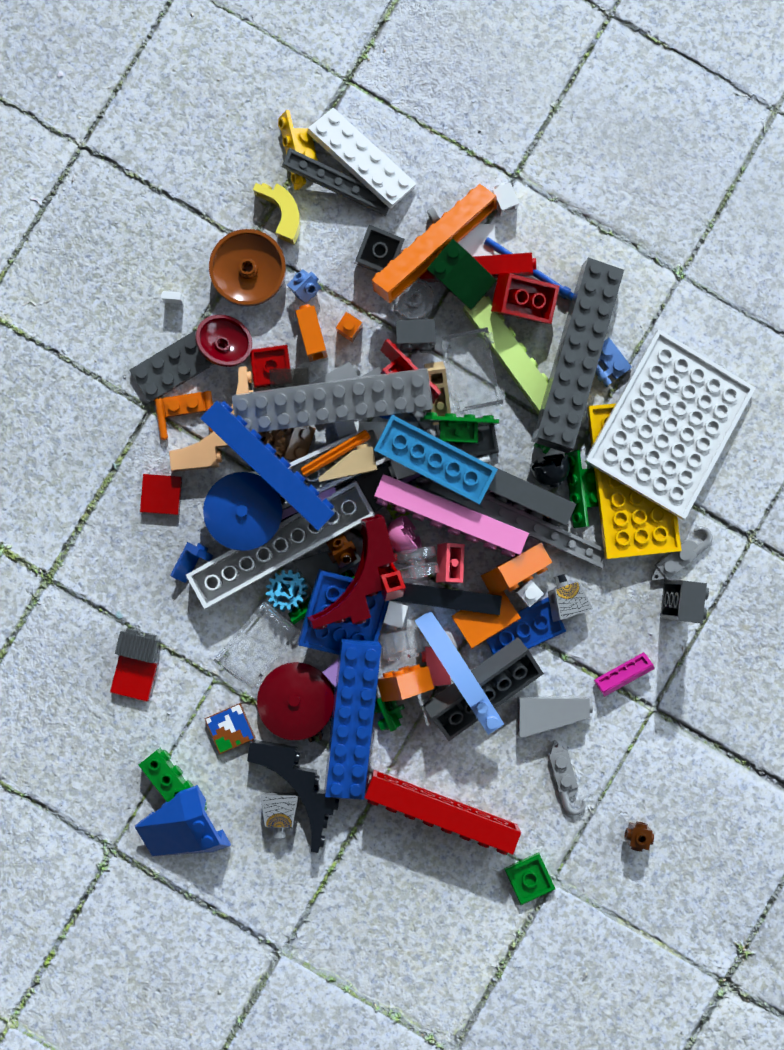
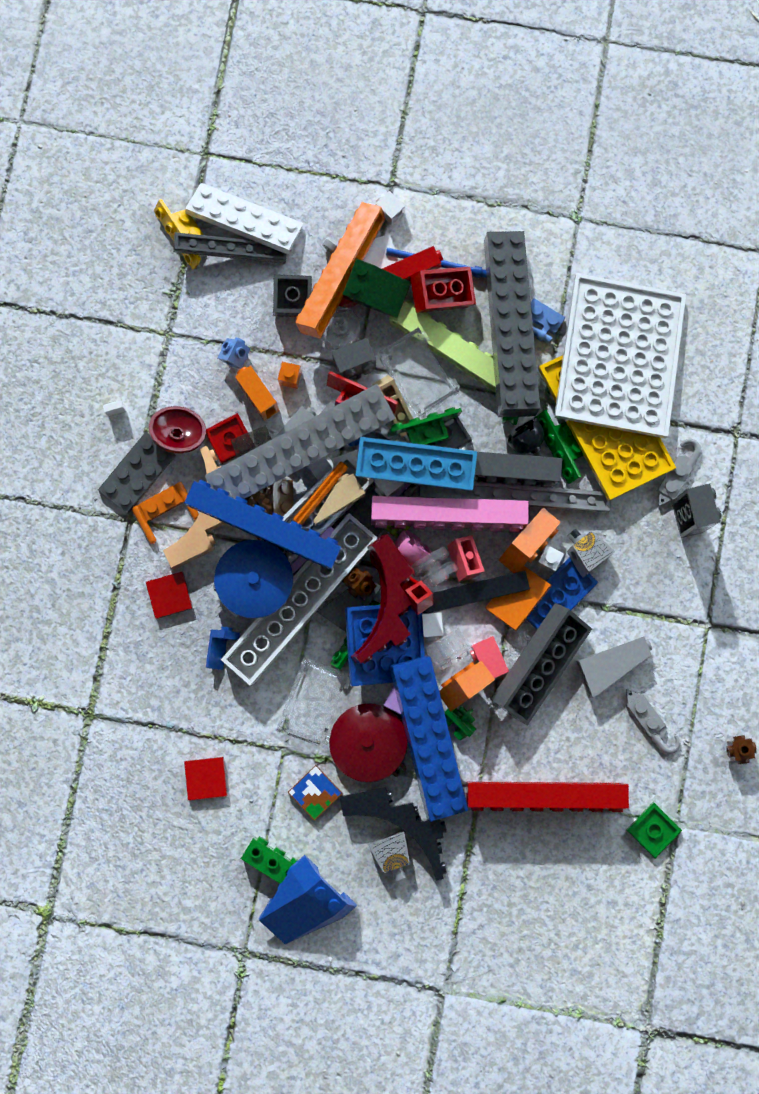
camera: 15 degrees left, 5 degrees down
(138, 646) = (198, 746): dark grey brick -> none
(247, 267) = (175, 355): dark orange dish -> none
(290, 219) = (199, 301): light yellow arch -> none
(296, 584) = (325, 635): medium azure gear -> none
(459, 672) = (513, 654): light blue arch -> none
(624, 674) = (668, 602): dark pink plate -> none

